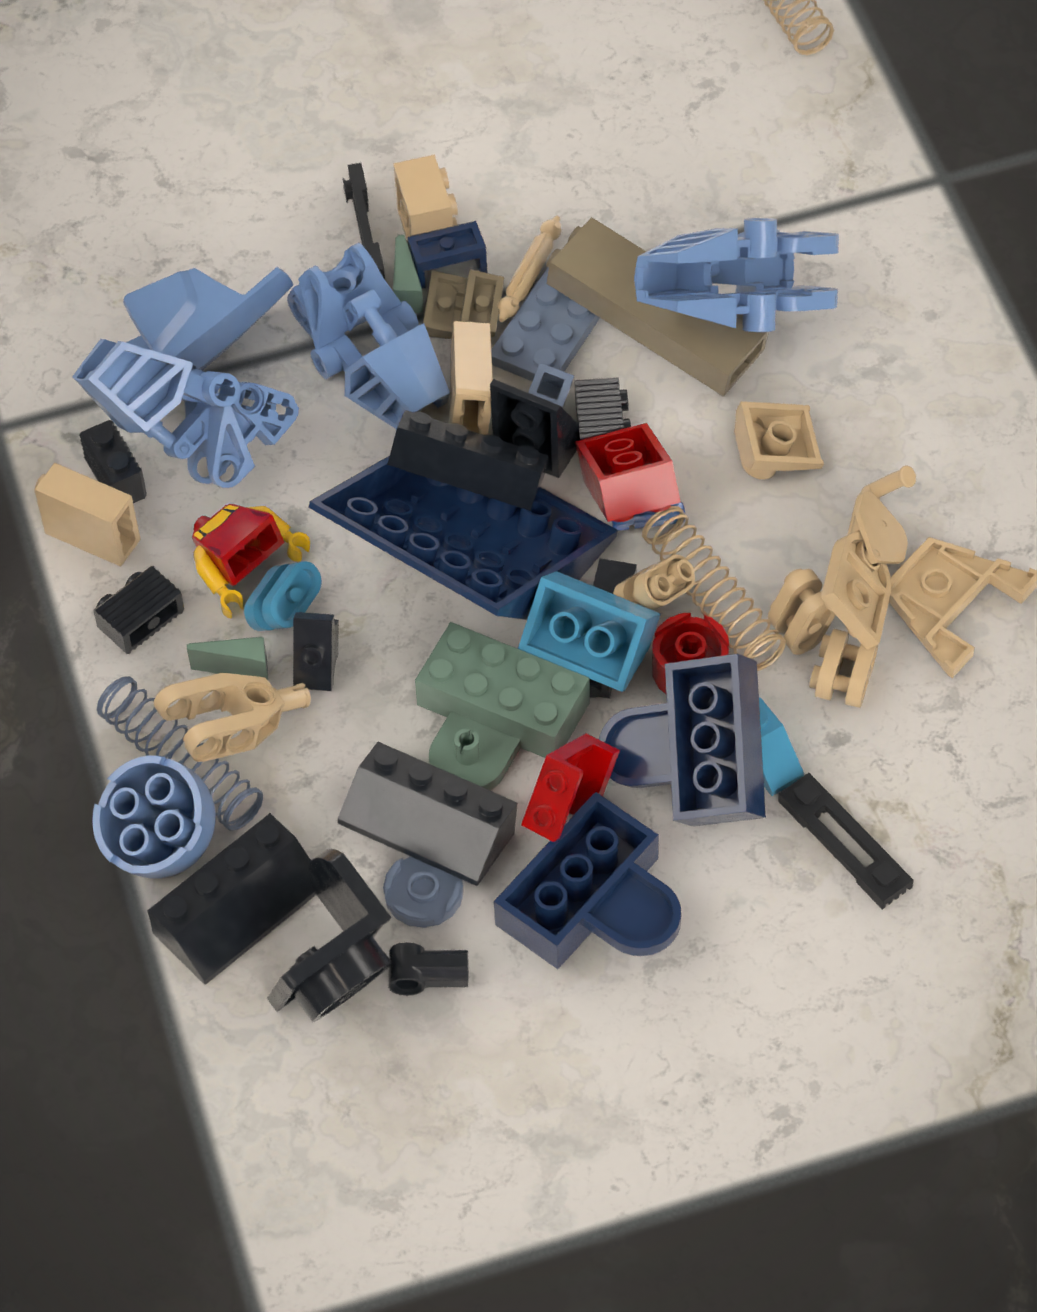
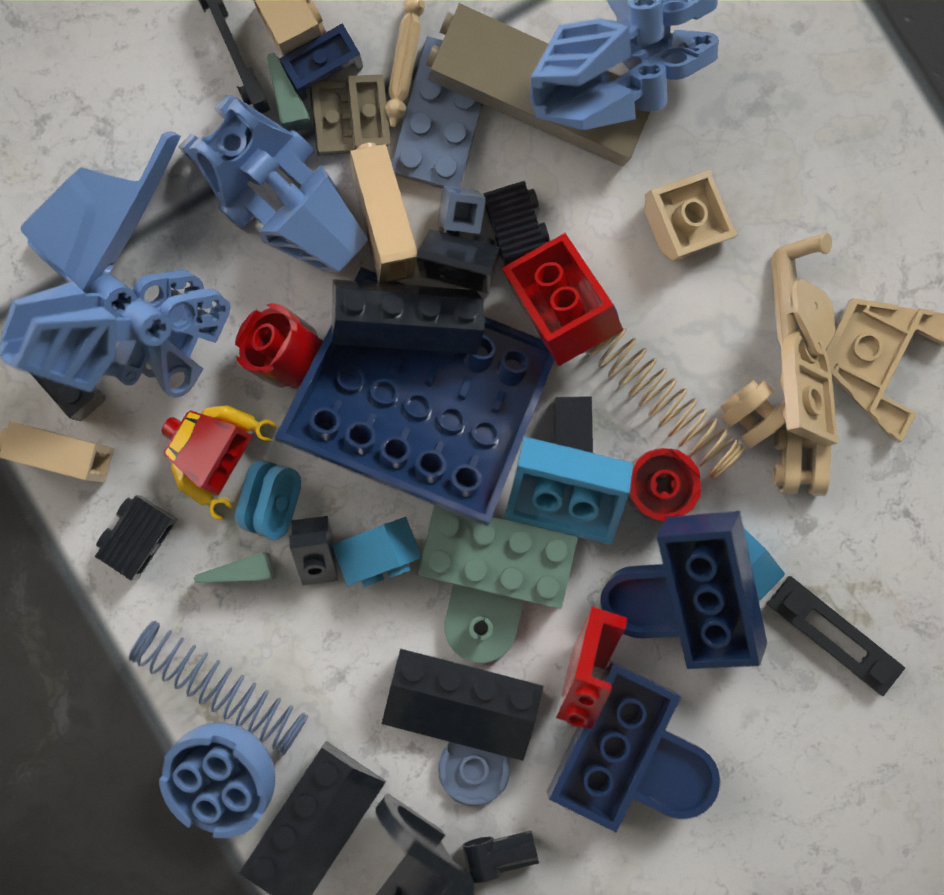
camera: 15 degrees left, 30 degrees up
(249, 699) = (255, 621): tan piece -> none
(330, 460) = (277, 346): none -> red brick
(379, 656) = (377, 551): none -> dark azure brick
(658, 583) = (616, 423): tan brick -> none

